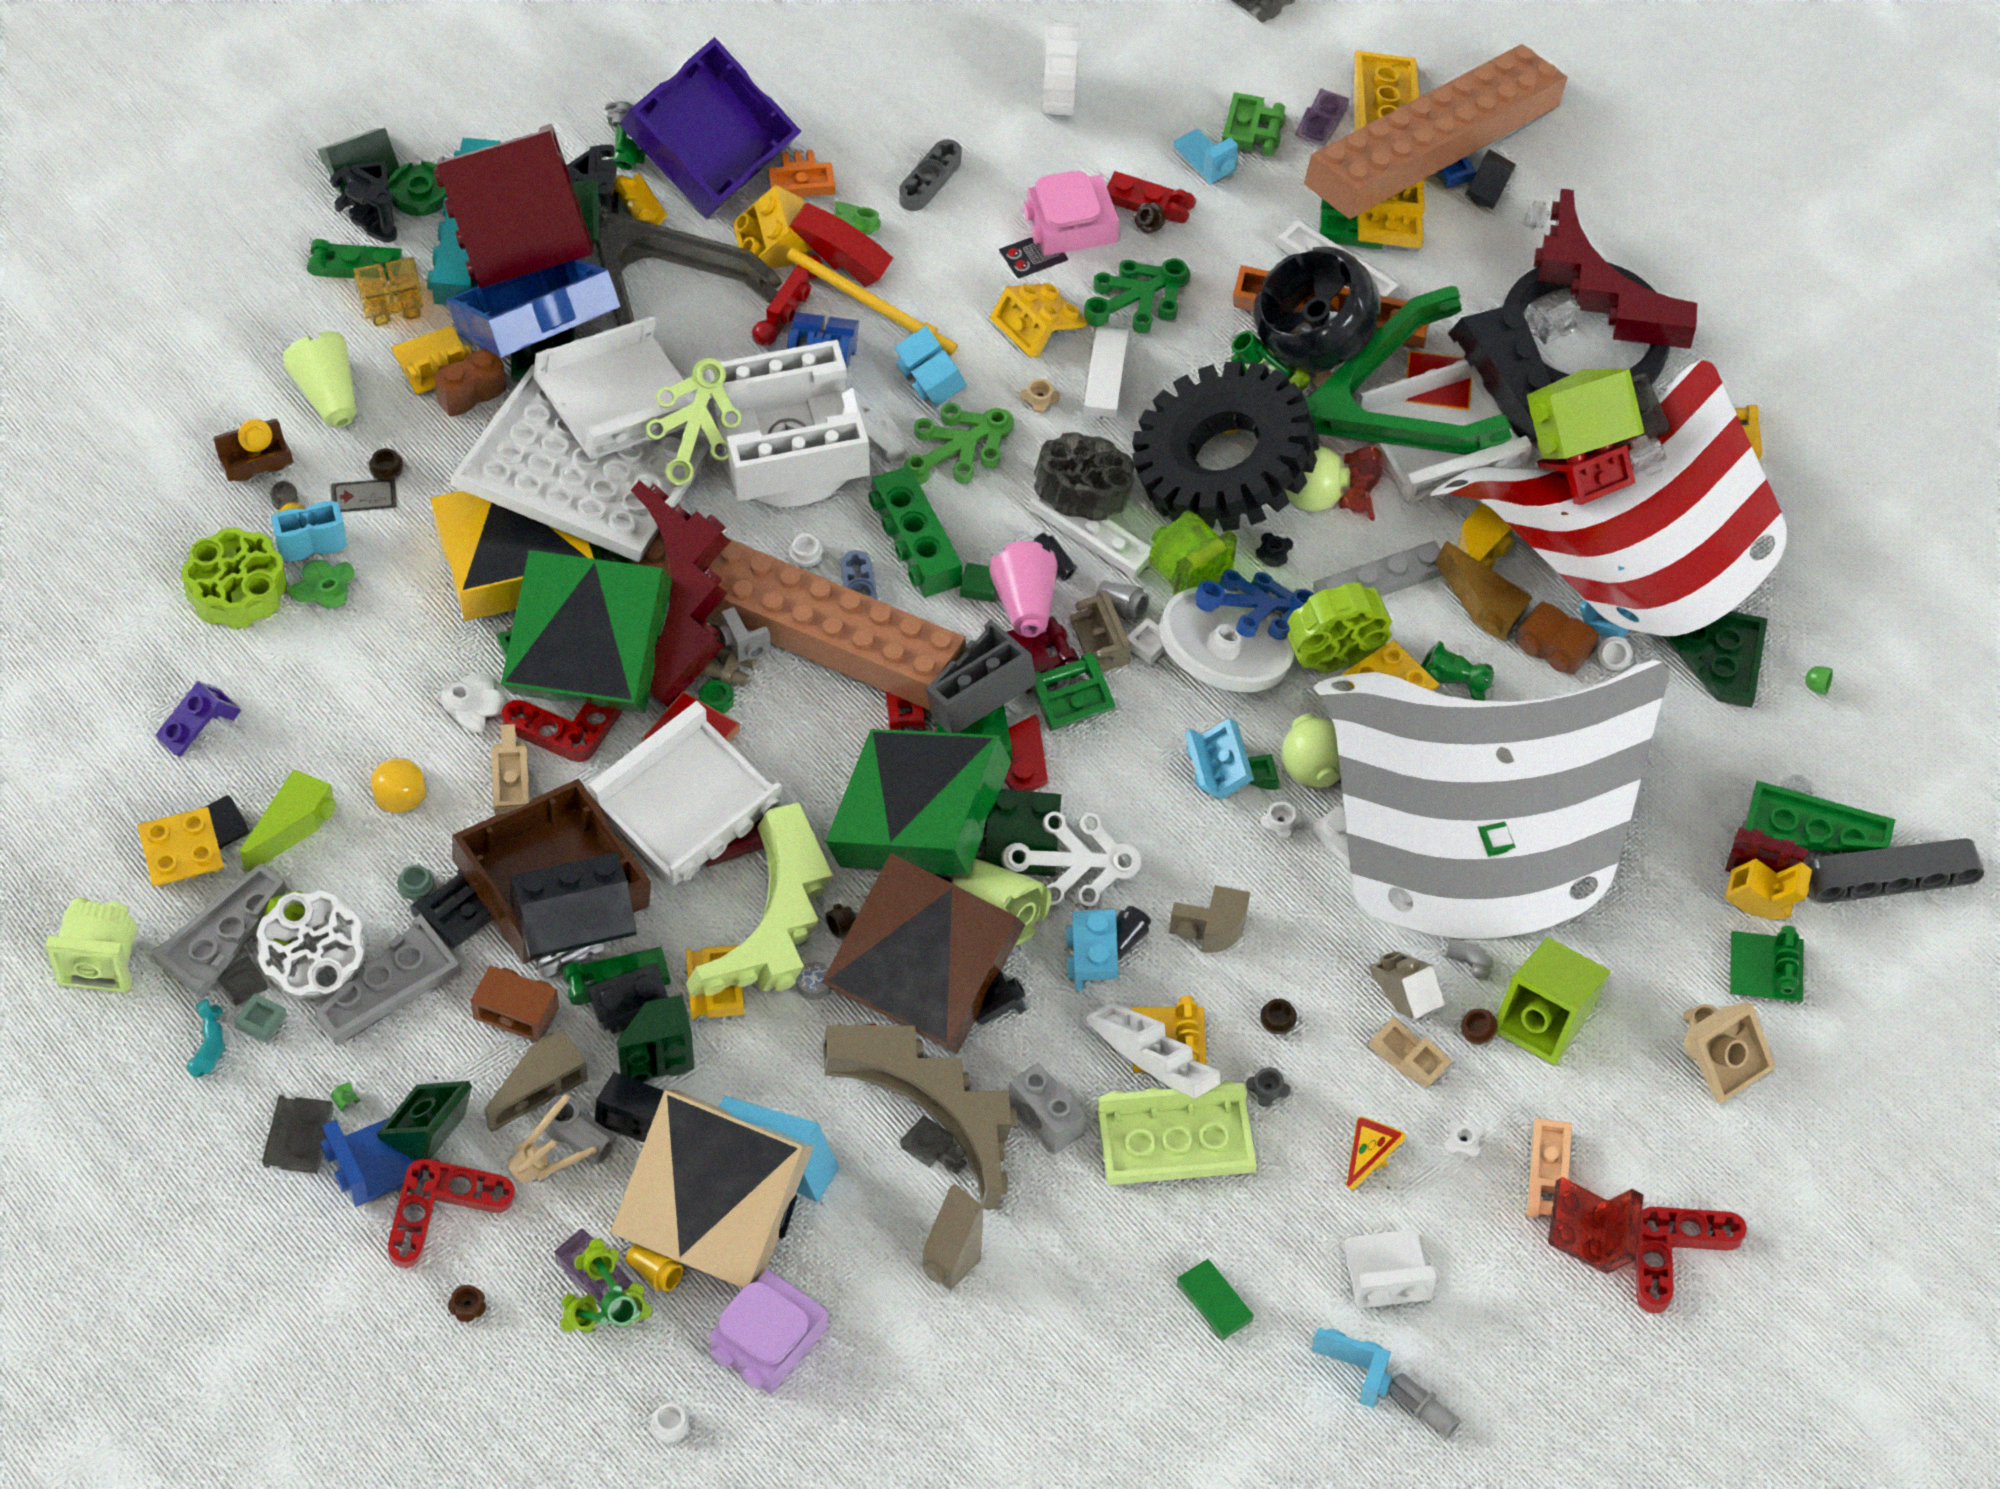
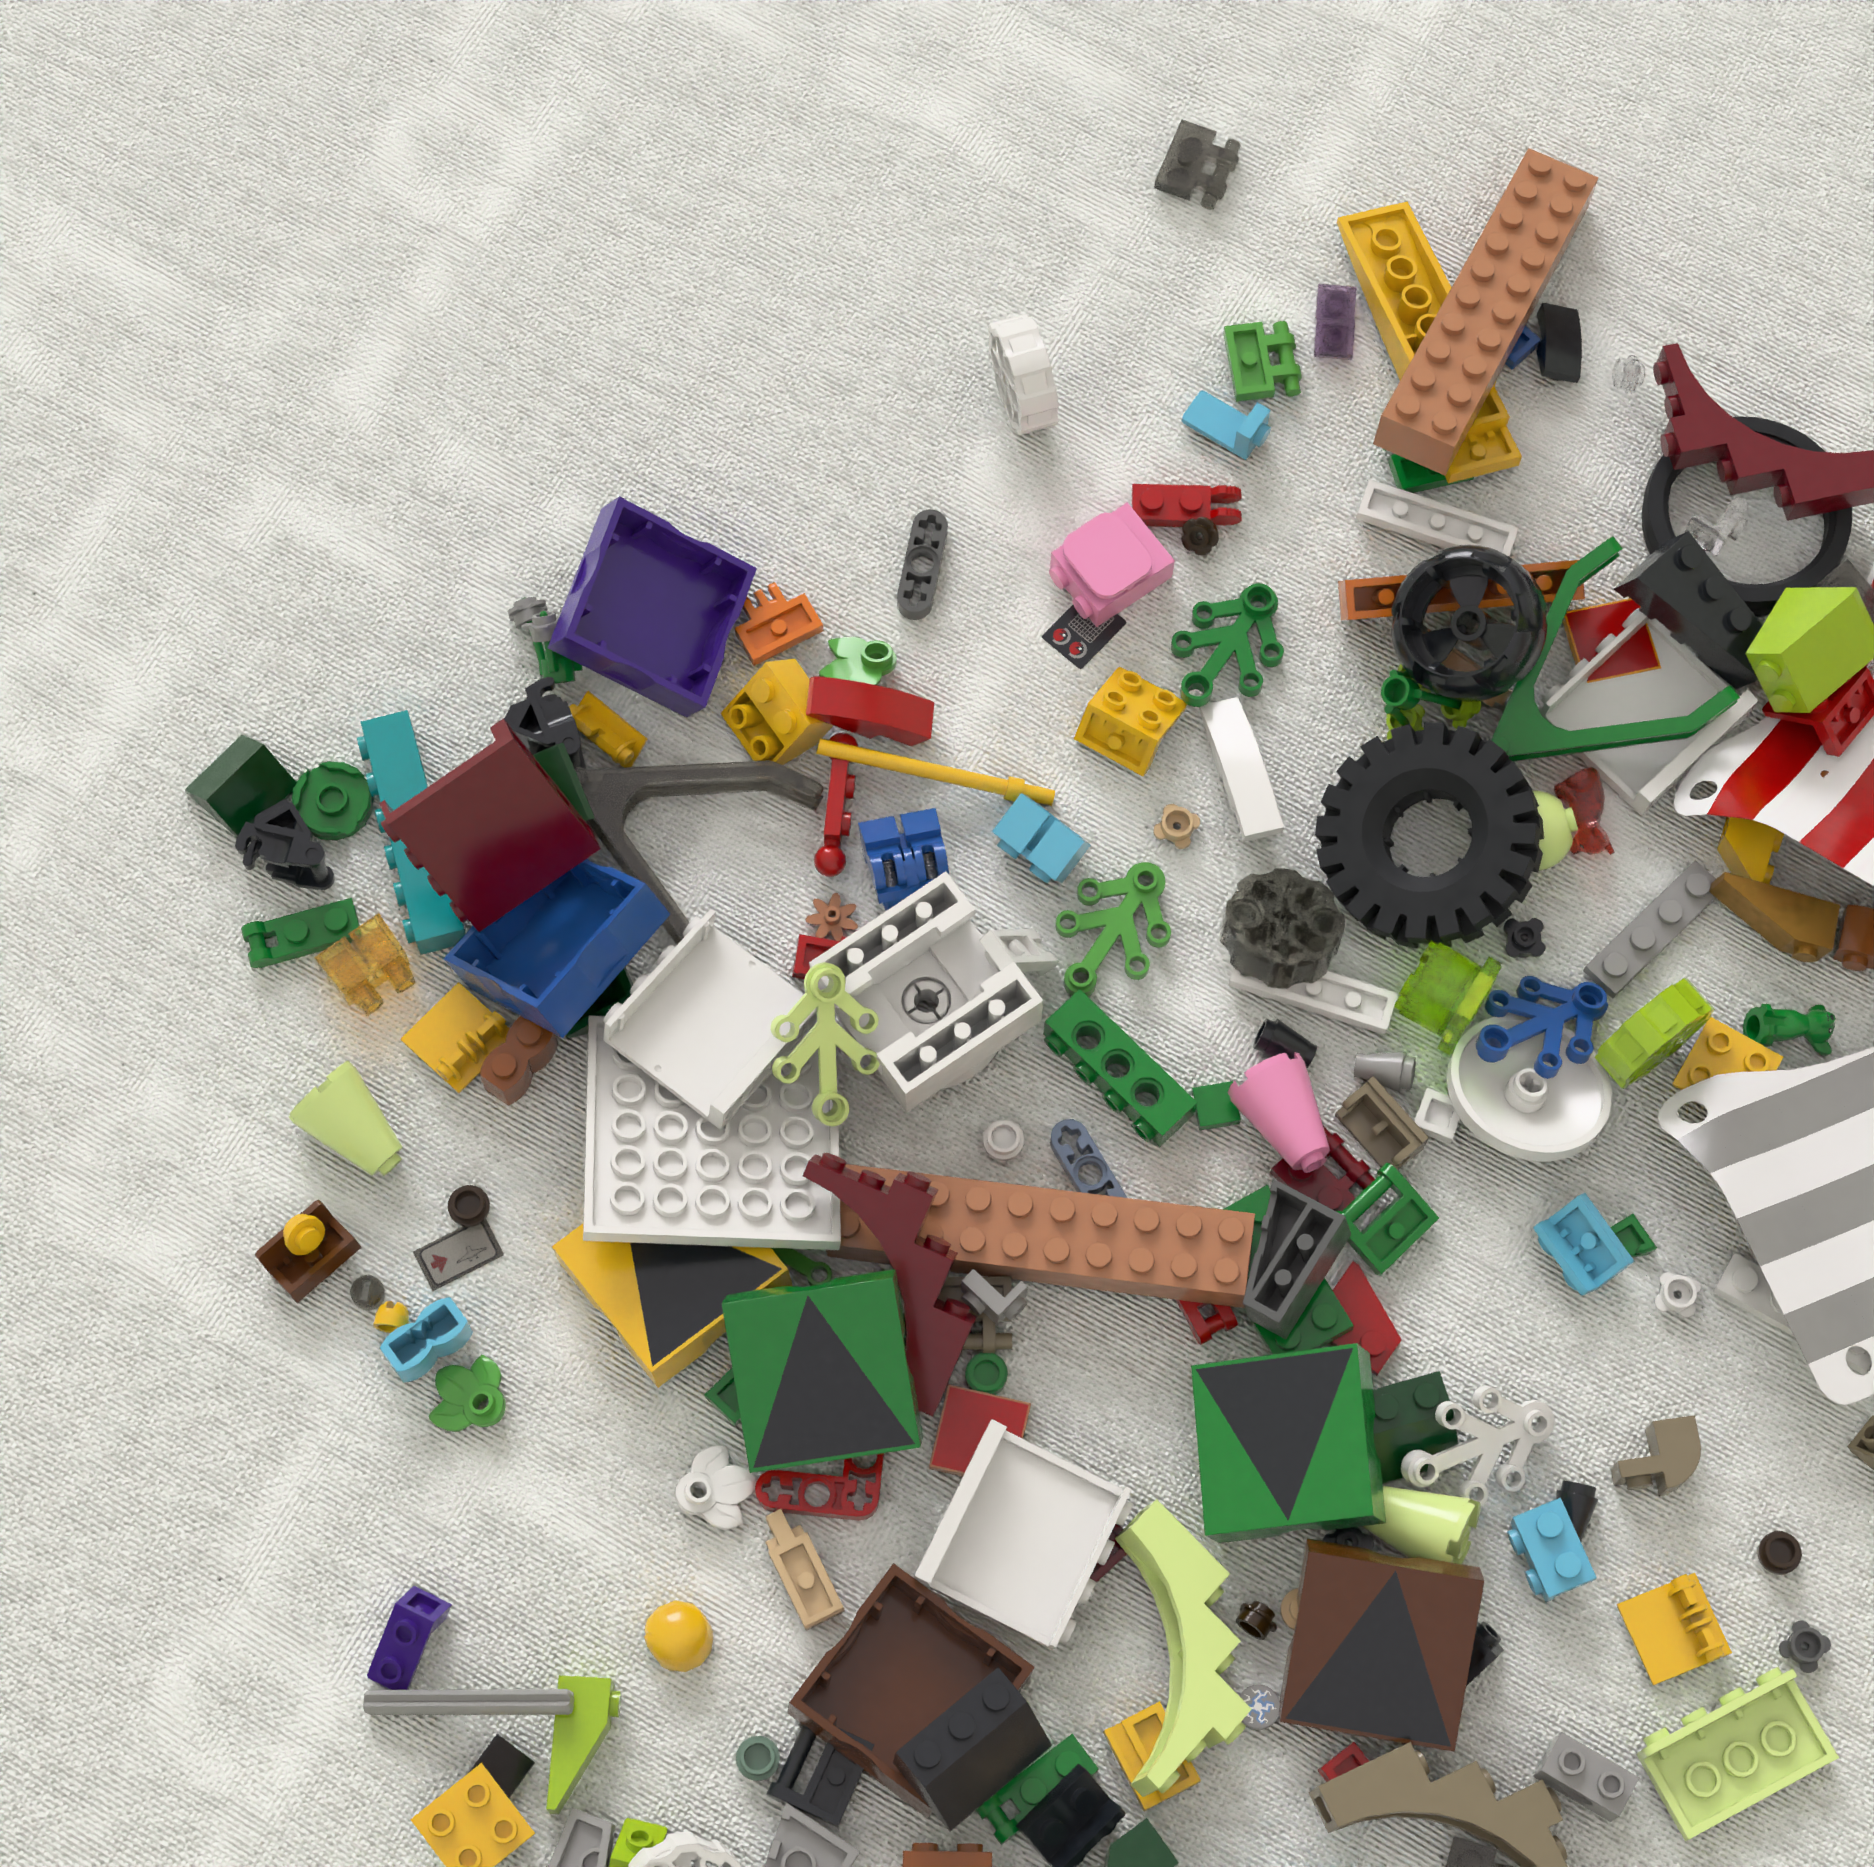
camera: 20 degrees left, 15 degrees up
(219, 766) = (469, 1702): none -> light grey axle
(234, 578) = (402, 1417): lime connector -> none
(1146, 1045) = (1674, 1663): white slope -> none
(1312, 752) = (1683, 1198): yellowish green brick -> none

